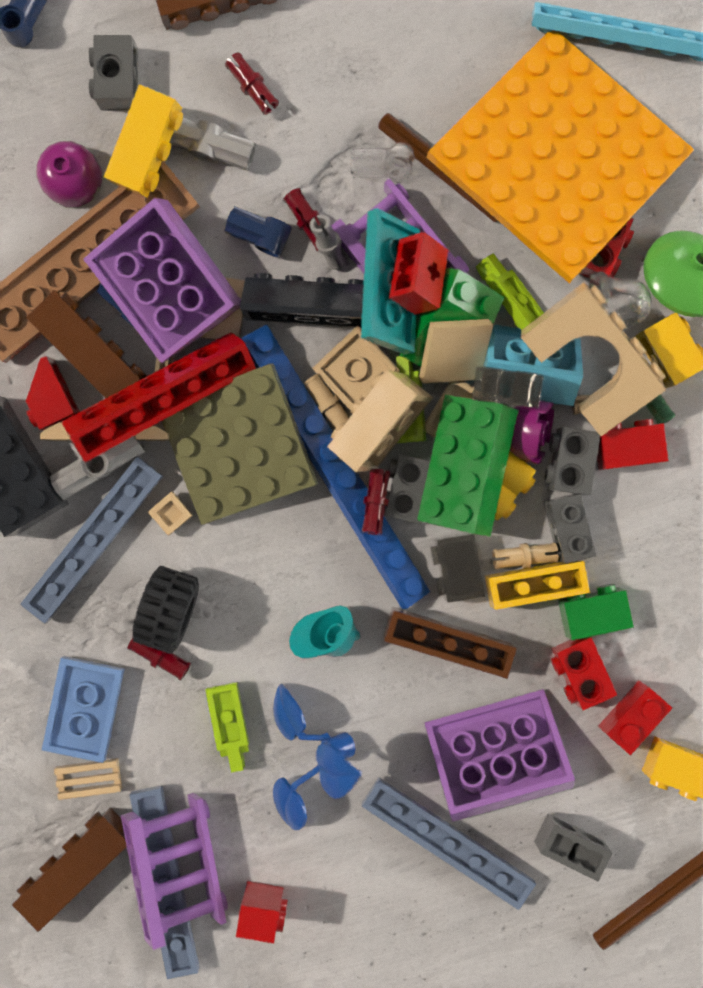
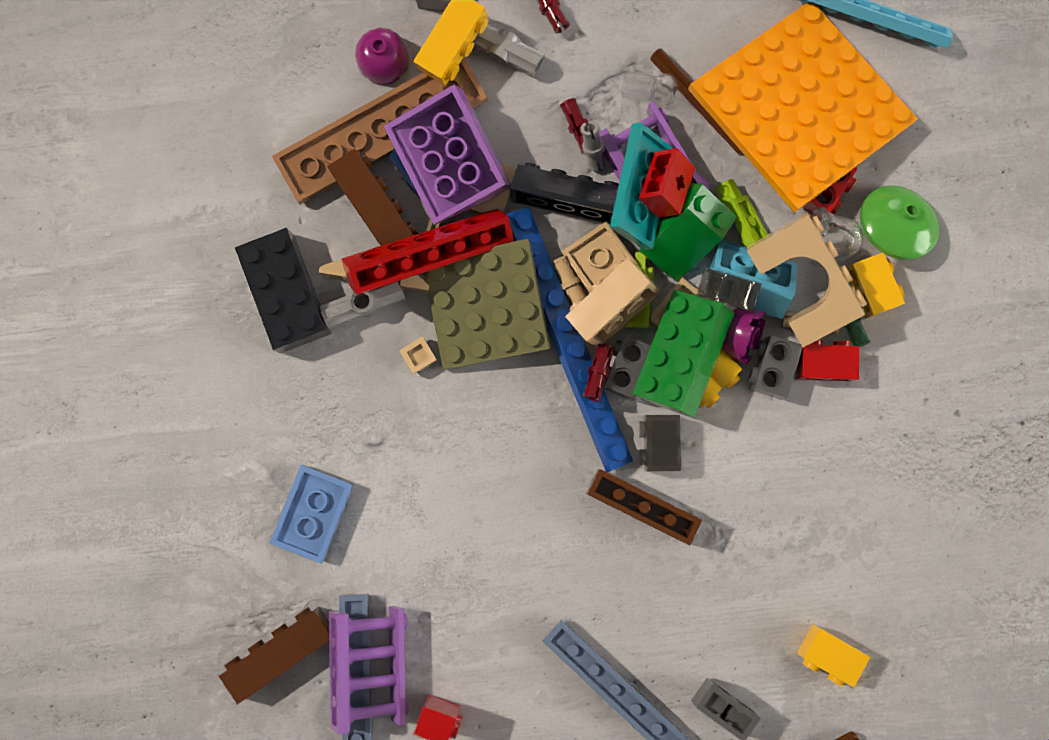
camera: 15 degrees right, 5 degrees down
(49, 396) = (331, 238): red slope -> none
(61, 782) = (280, 577): tan tile -> none
(91, 540) = (345, 367): sand blue plate -> none
(165, 609) = (400, 435): black tyre -> none
(169, 662) = (386, 478): dark red pin -> none
(228, 723) = (437, 548): lime hinge -> none
(266, 233) = (540, 132): dark blue piece -> none
(324, 633) = (535, 481): teal piece -> none
(336, 773) = (527, 591): blue plant -> none
(454, 350) = (687, 253): tan tile -> none
(499, 755) = (672, 617): medium lavender slope -> none
(525, 555) = (721, 443): tan pin -> none
(536, 584) = (728, 468): yellow brick -> none
(569, 528) = (763, 424): dark grey brick -> none
(589, 668) = (763, 551): red brick -> none
(596, 612) = (776, 503): green brick -> none
(635, 717) = (797, 601): red brick -> none

